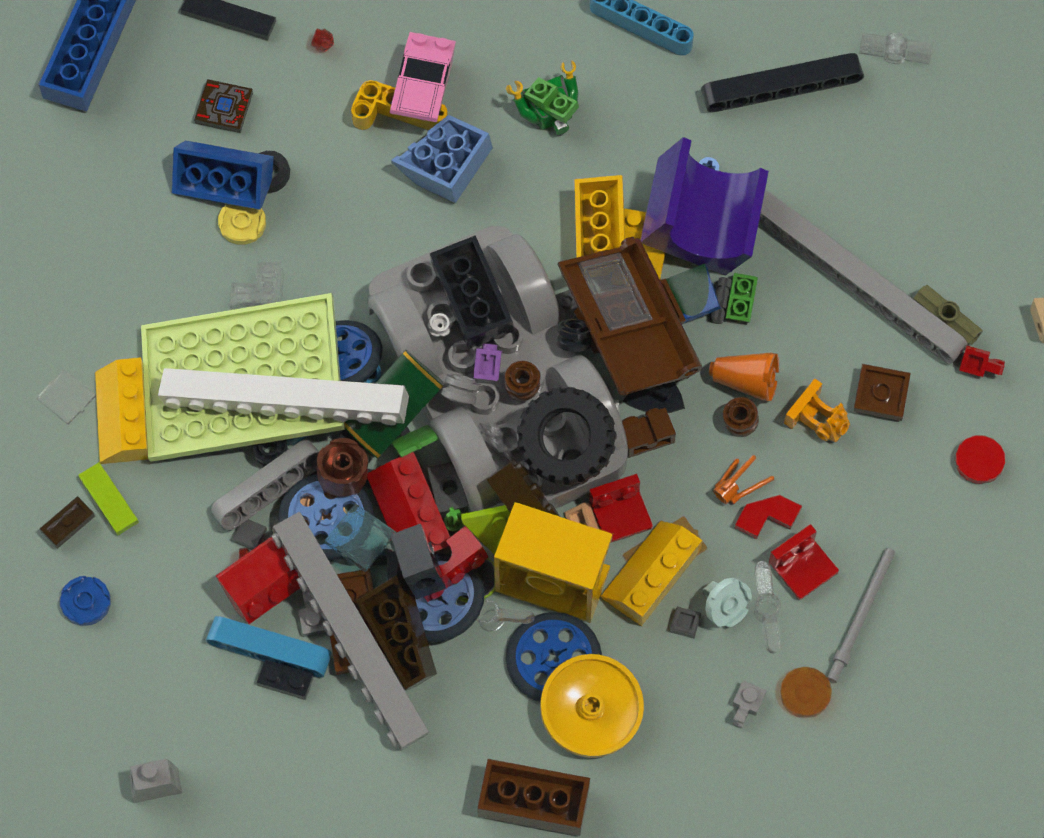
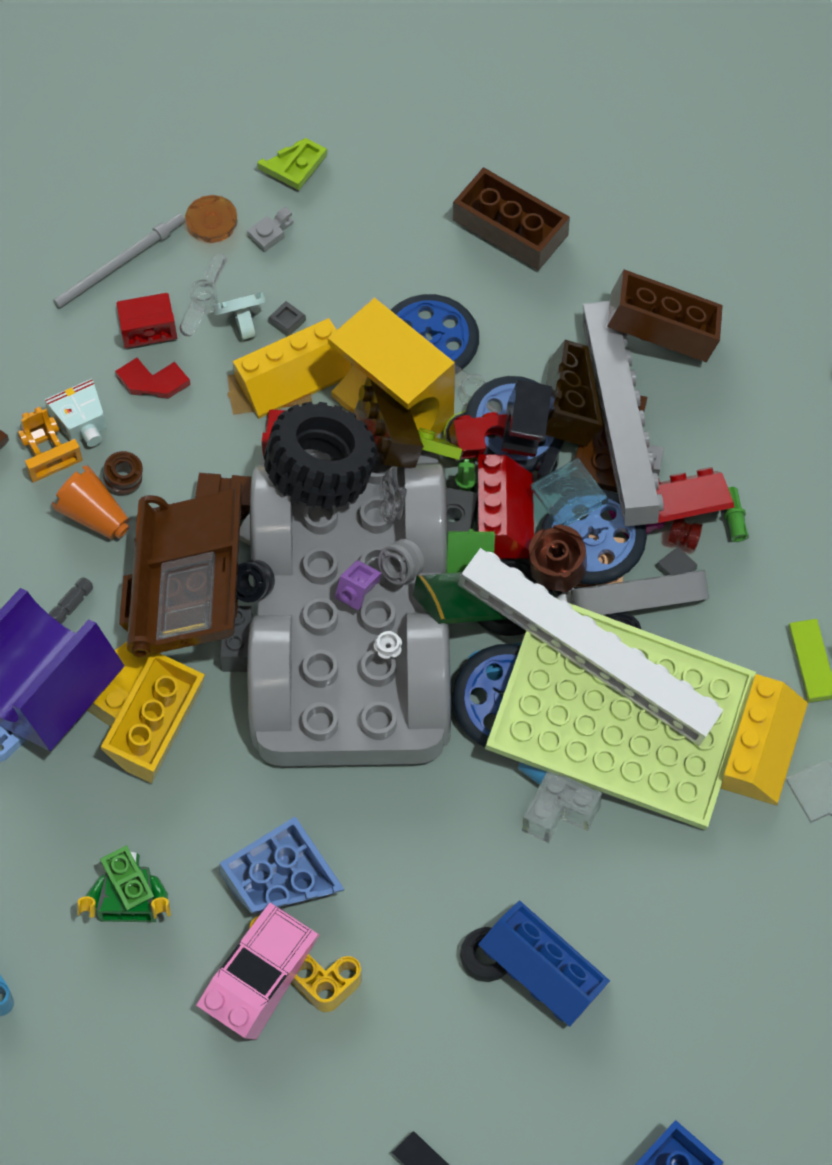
camera: 155 degrees left, 5 degrees down
(218, 596) = (736, 518): none -> bright green axle
(223, 106) = (504, 1064): dark brown tile -> none
(241, 224) = (549, 903): light yellow tile -> none
(268, 645) = (703, 446): dark azure beam -> none
(285, 679) = (698, 417): black plate -> none
(322, 39) = (350, 1095): clear red plate -> none
(348, 740) = (665, 316): none -> reddish brown brick
(471, 292) = (338, 655): black brick -> none
(524, 391) = (335, 559): reddish brown wheel -> none
(591, 705) = (417, 270): yellow dish -> none
(694, 292) = (101, 606): dark green tile -> none
(727, 489) = (176, 412): orange plant -> none
(741, 297) = (53, 587): bright green slope -> none
(762, 780) = (294, 163): none -> lime wing
(807, 452) = (78, 413): none -> light aqua torso

